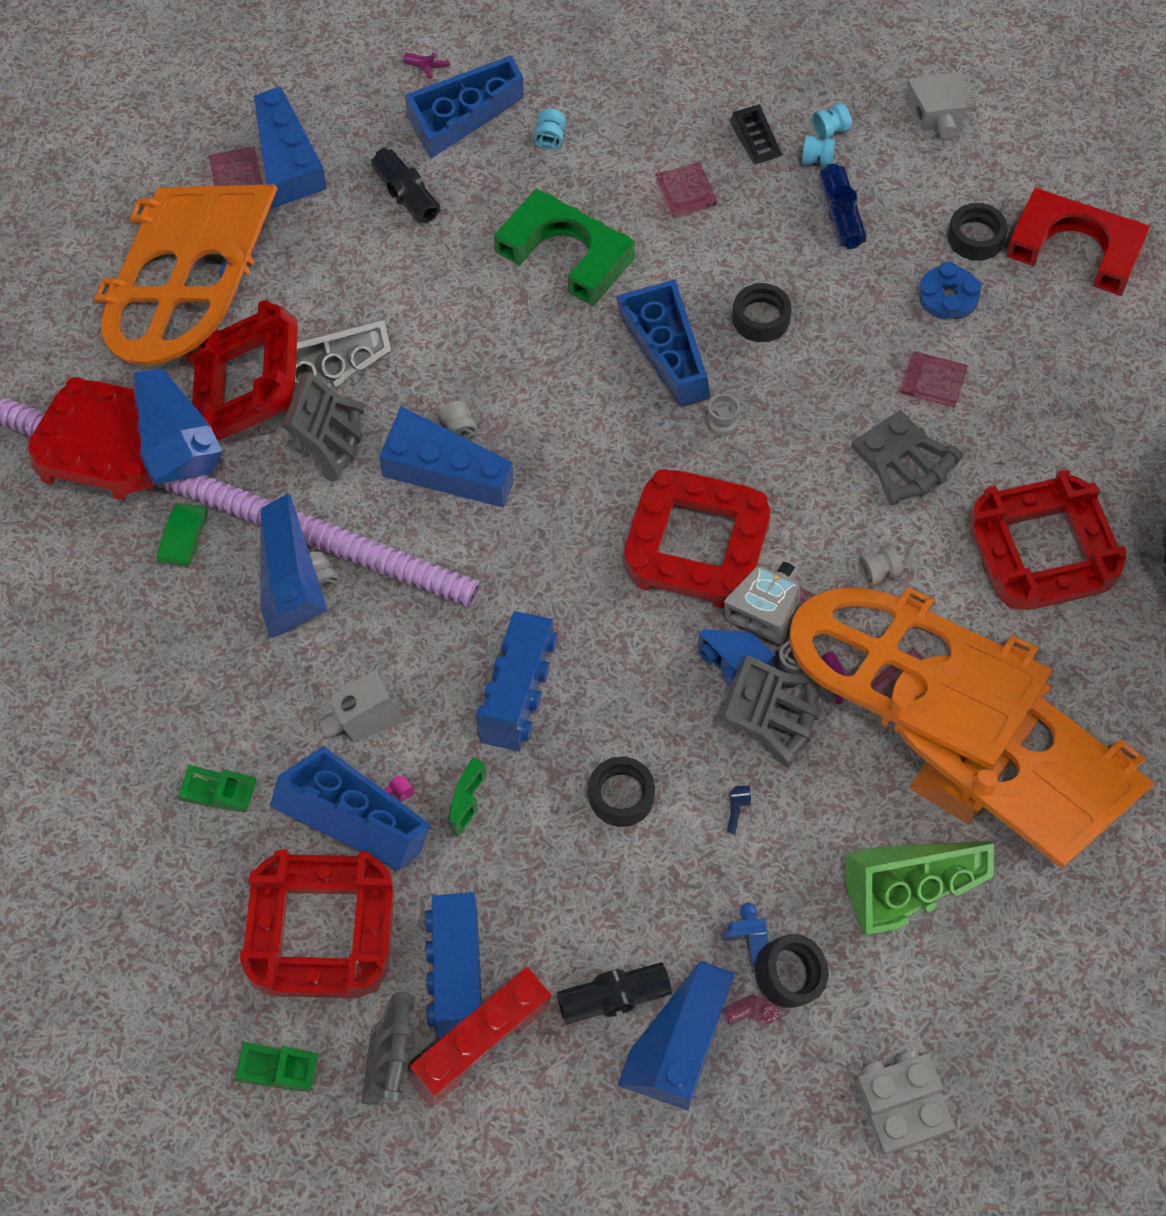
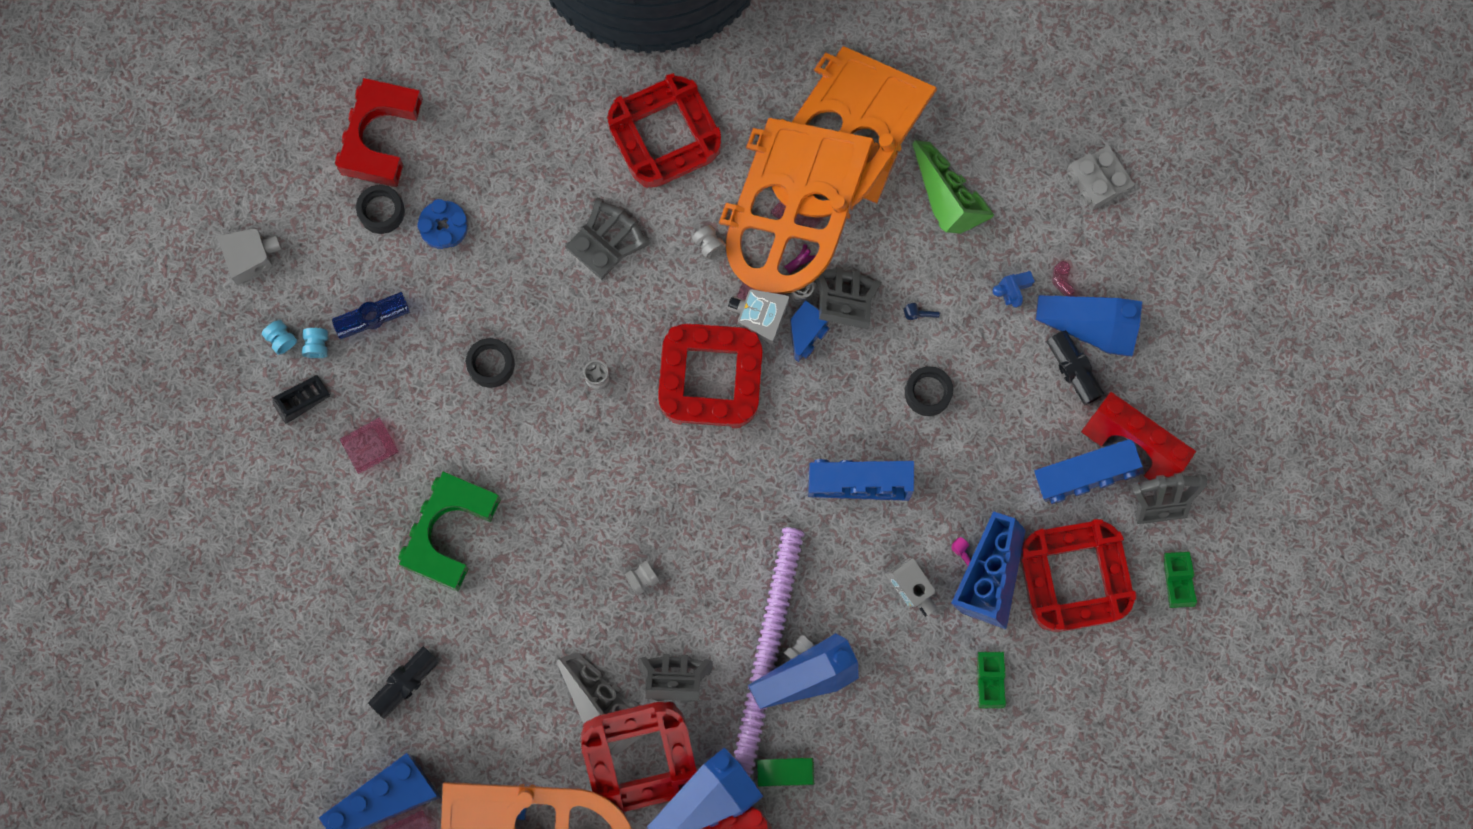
camera: 105 degrees left, 15 degrees up
(424, 62) = (254, 703): magenta bar -> none
(444, 461) = (679, 588): blue wedge -> none
(463, 103) = (314, 657): blue wedge -> none
(463, 802) = (967, 497): green slope -> none
(549, 129) = (322, 571): medium azure wheel -> none
(666, 339) = (533, 428): blue wedge -> none
(813, 960) = (1040, 243): black tyre -> none
(934, 379) = (530, 225): clear pink piece -> none

